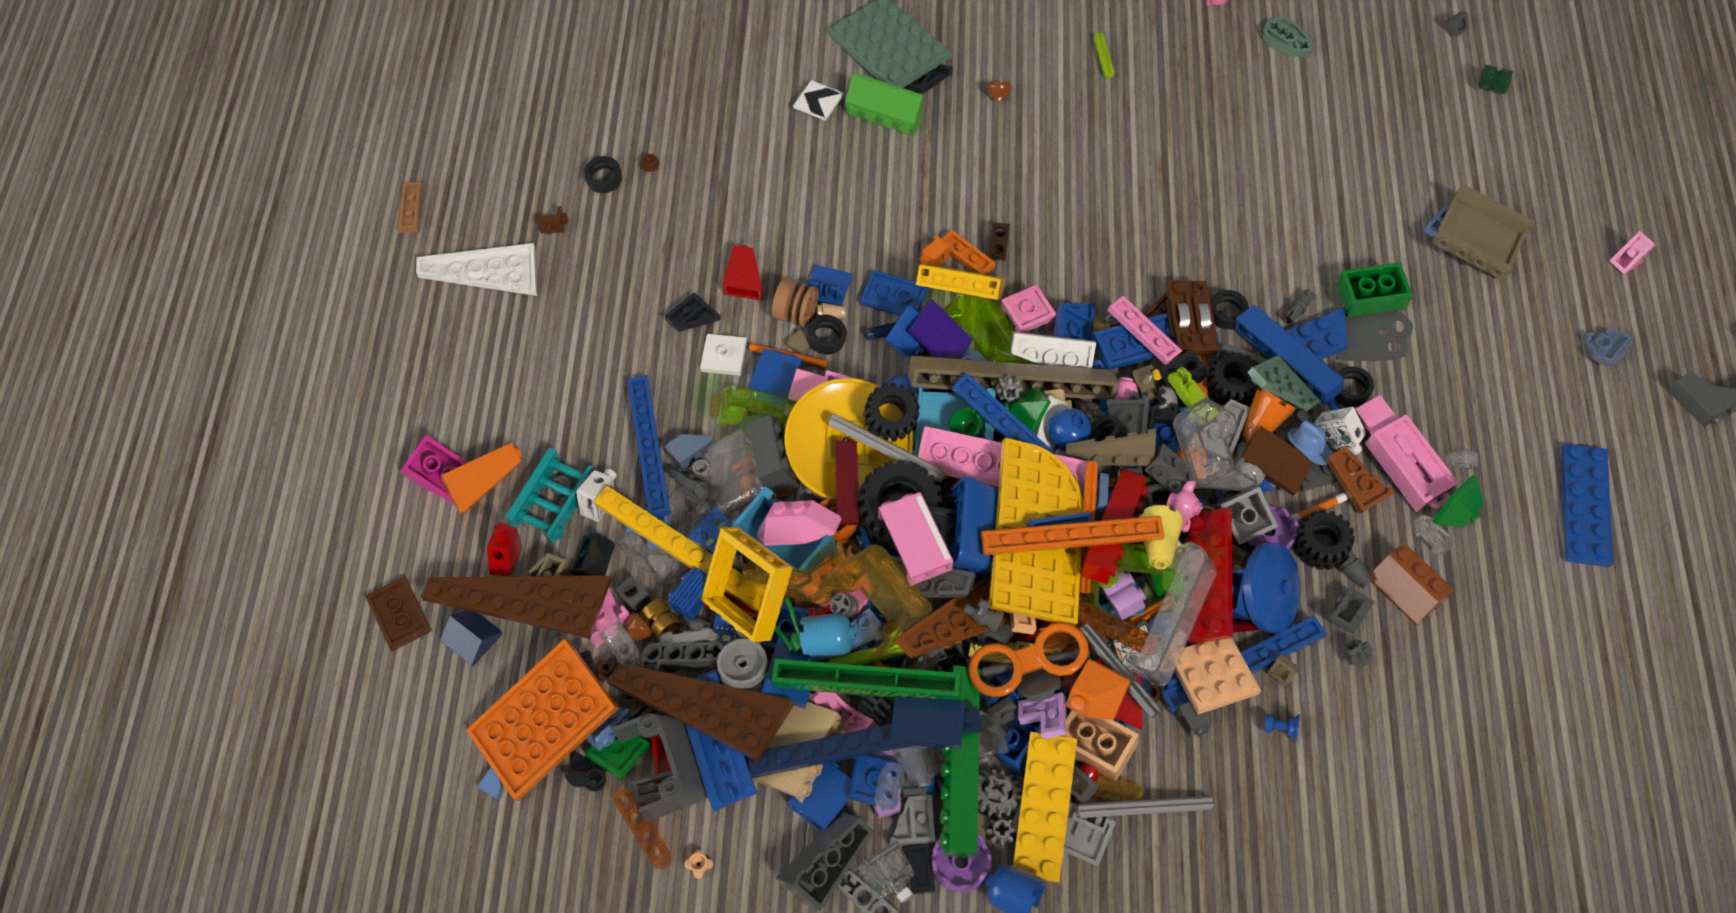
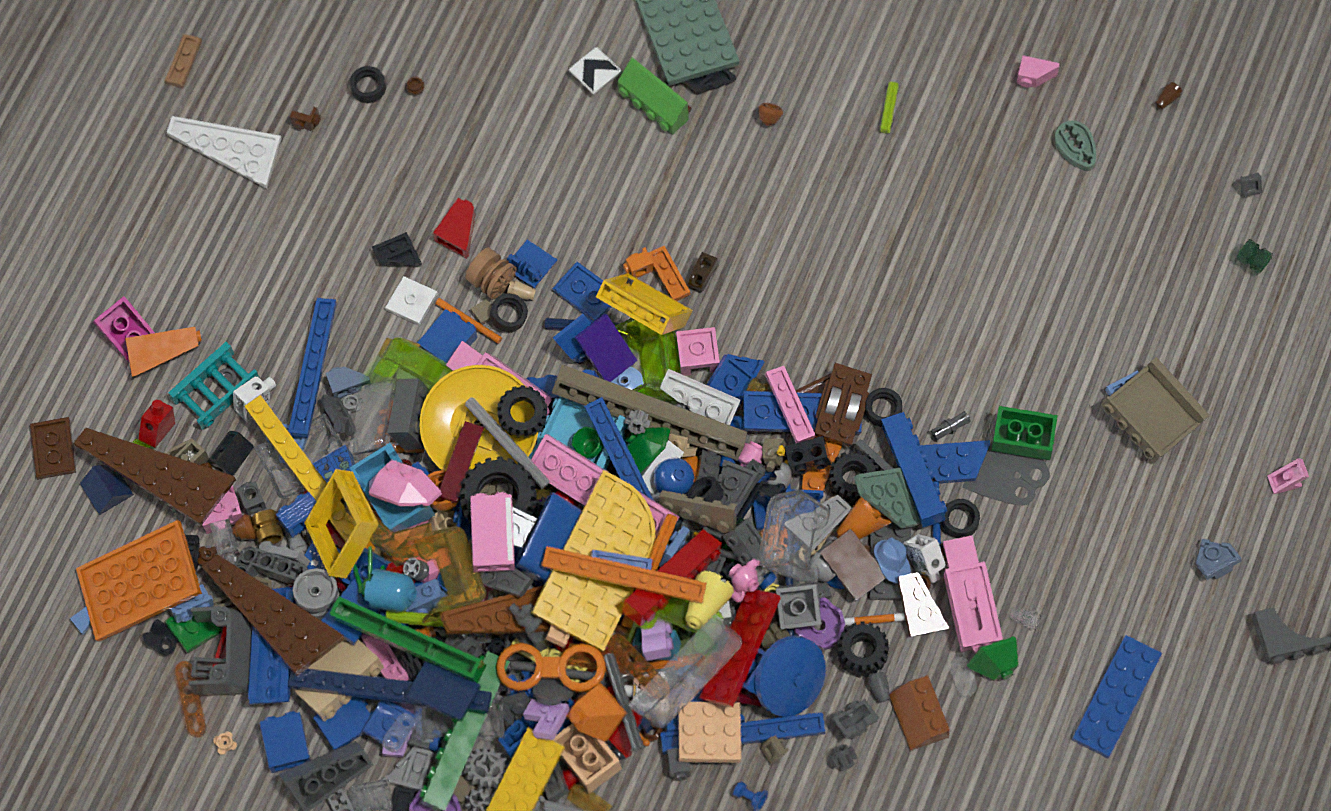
camera: 20 degrees right, 5 degrees up
(766, 839) = (285, 741): none -> blue brick
(1189, 392) = (802, 477): lime hinge -> none

